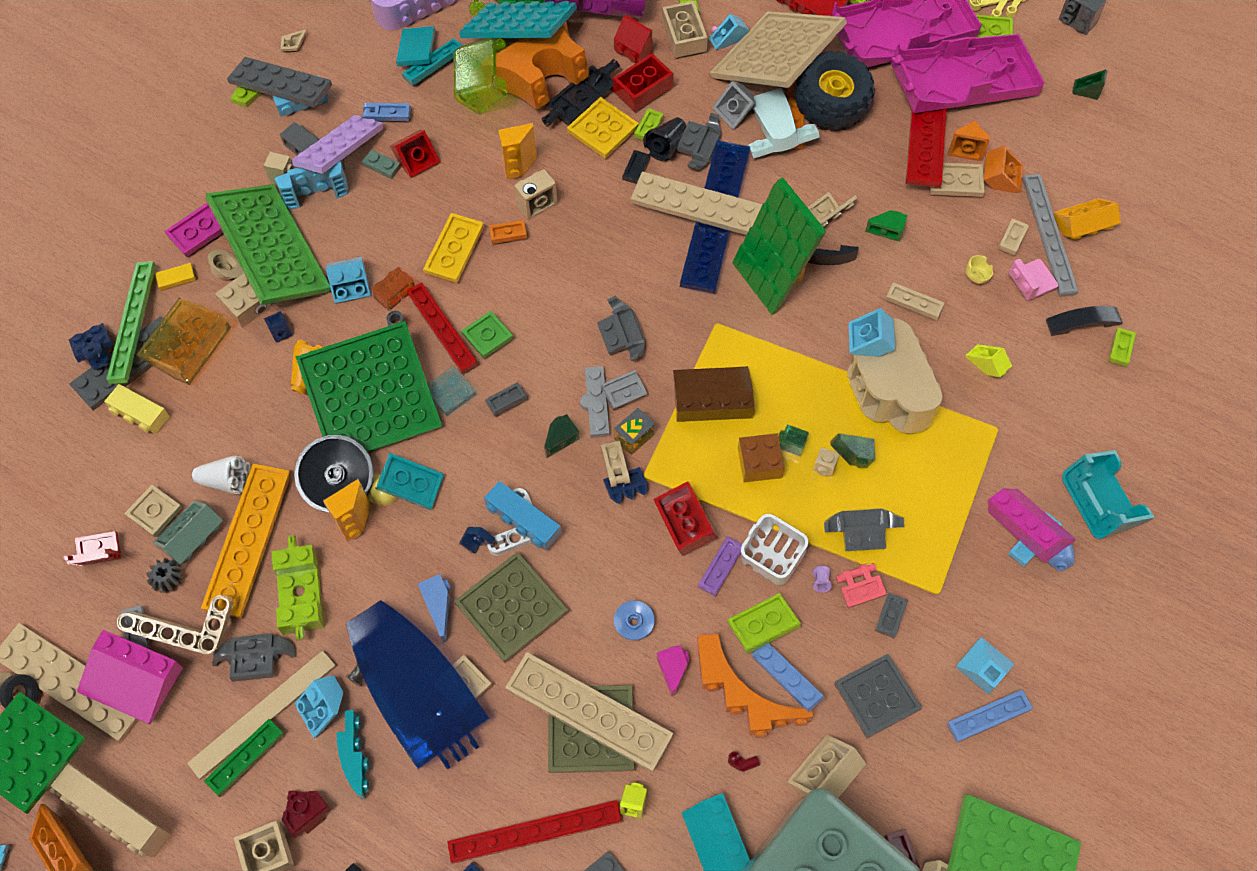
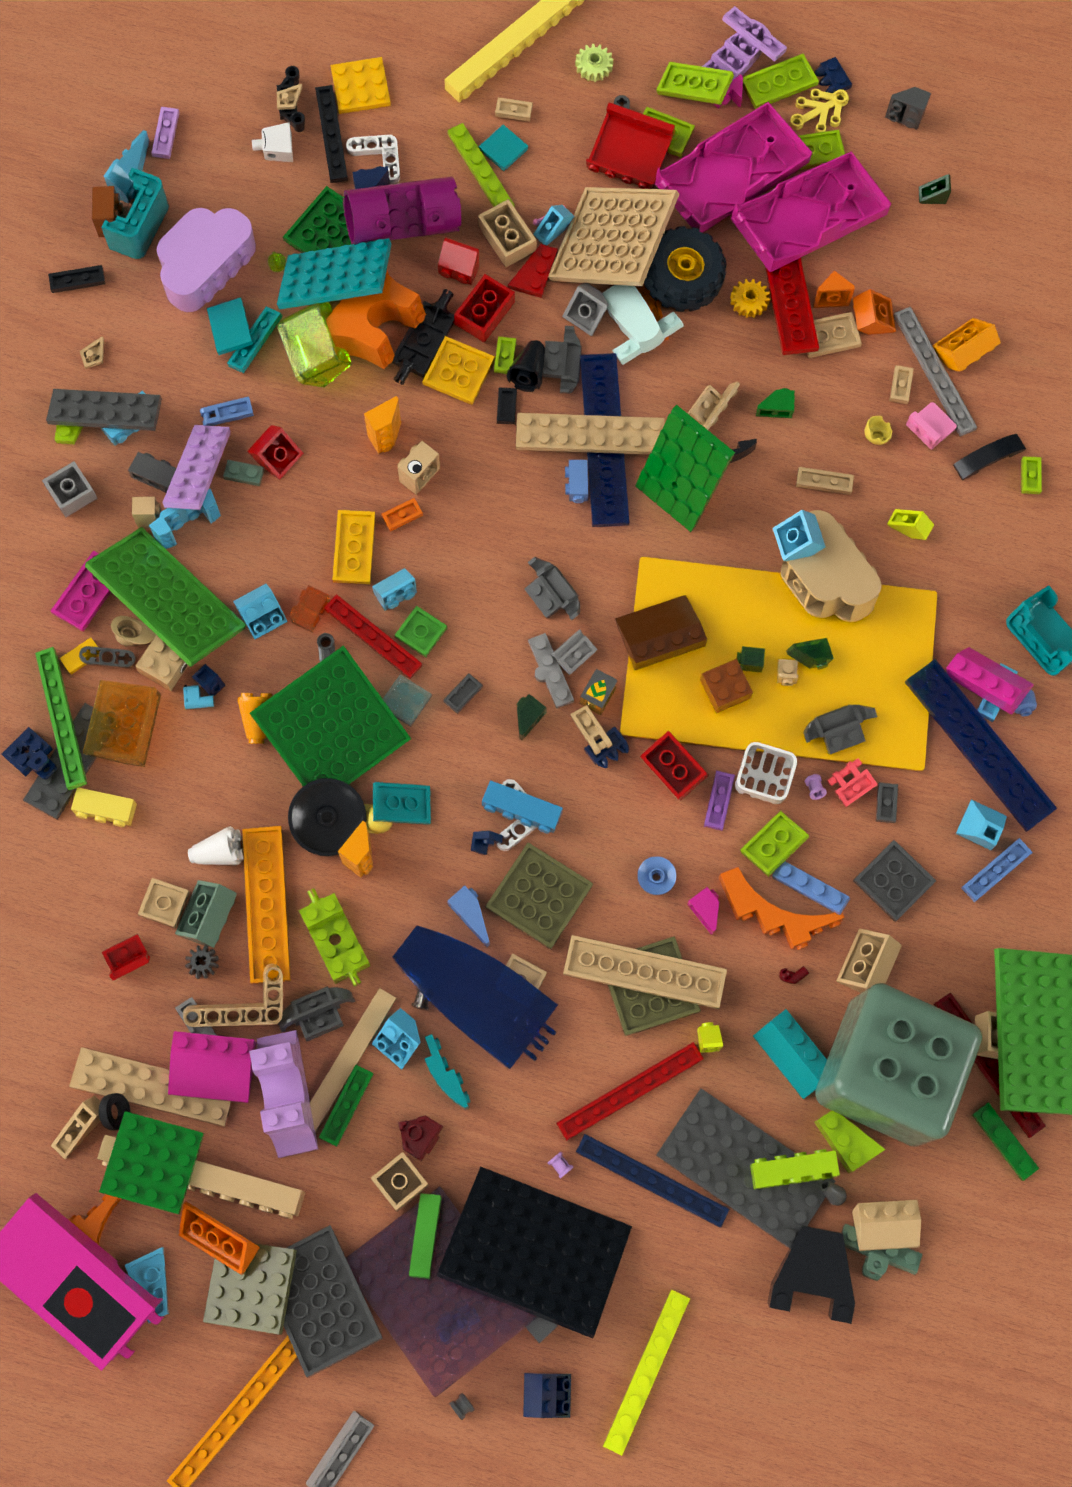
camera: 20 degrees left, 10 degrees up
(187, 726) = (285, 1094): none -> lavender piece
(188, 284) = (91, 661): none -> dark grey beam
(224, 137) = (69, 489): none -> light grey brick
(258, 338) = (193, 699): none -> medium azure piece
(476, 292) = (395, 589): none -> medium azure slope
(679, 242) = (578, 481): none -> medium blue brick
(698, 69) = (534, 273): none -> red wing
(889, 132) = (748, 307): none -> yellow gear
(1006, 588) = (980, 745): none -> clear blue plate

